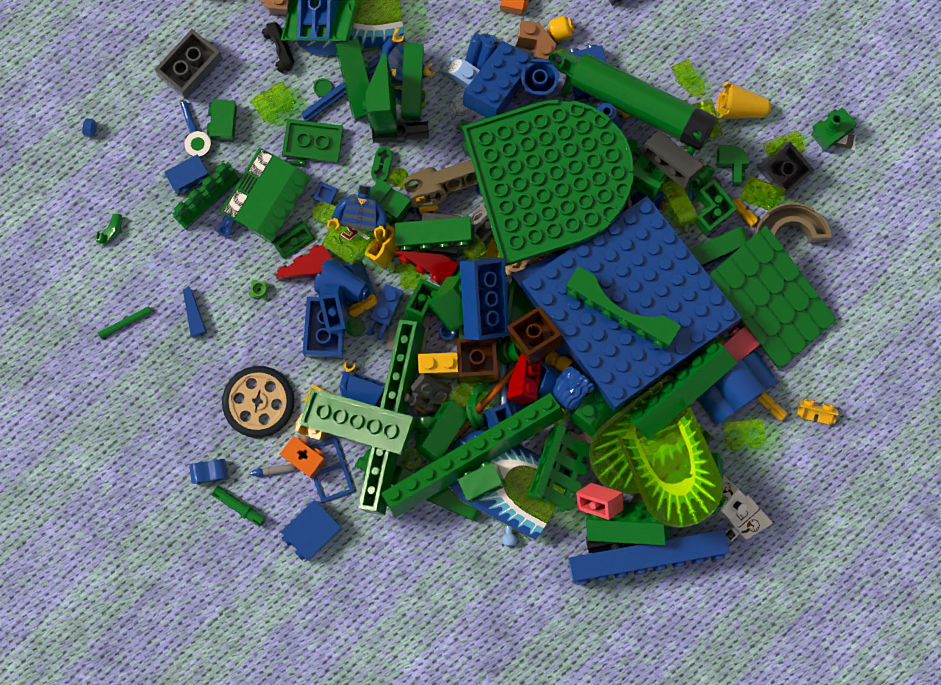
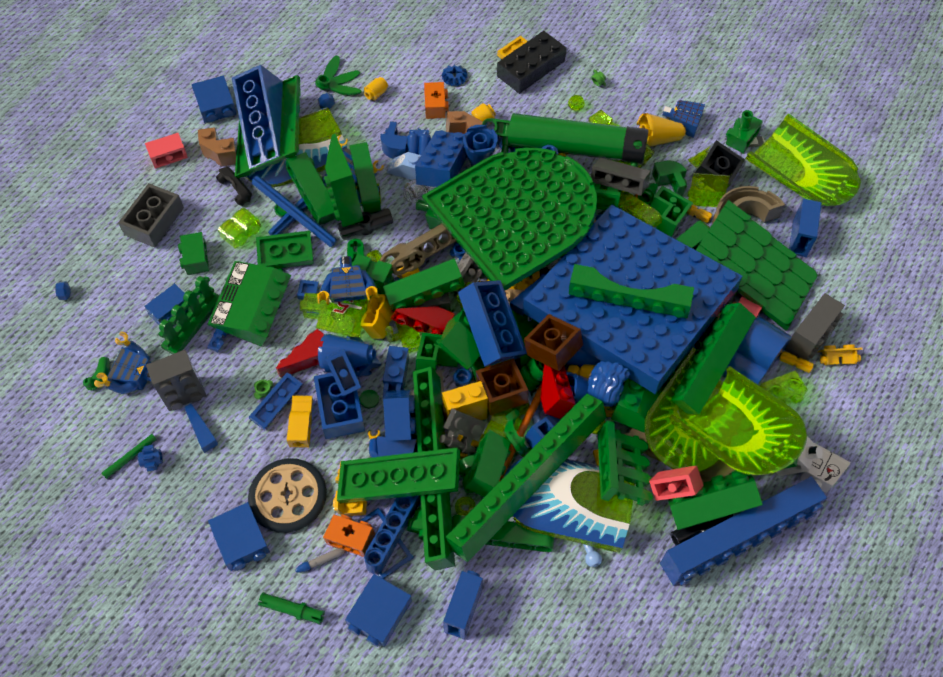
camera: 20 degrees left, 20 degrees down
(140, 235) = (128, 370): none -> blue torso
(143, 332) = (150, 458): none -> blue gear
(180, 266) = (176, 380): none -> dark grey brick
(196, 141) = (170, 275): piece -> none
(207, 430) = (239, 537): none -> blue brick
(208, 471) = (249, 580): blue axle -> none
(267, 306) = (275, 401): none -> blue plate
(285, 333) = (300, 422): none -> yellow piece
(293, 239) = (287, 337): green slope -> none
(331, 99) = (294, 211): none -> blue axle
(335, 463) = (390, 533): none -> blue beam
(360, 307) = (375, 371): yellow piece -> none
(374, 361) = (398, 415): none -> blue brick
(383, 548) = (463, 604): none -> blue brick
(453, 41) = (393, 144): none -> blue brick
(481, 482) = (549, 497): green brick -> none
(668, 32) = (576, 102): none -> clear neon green plate
(704, 12) = (598, 78): none -> bright green plate
(779, 90) = (686, 113): none -> blue torso
(802, 381) = (815, 328): none -> dark grey brick
(842, 267) = (805, 227): none -> blue brick
(877, 193) = (807, 164): none -> clear neon green windscreen

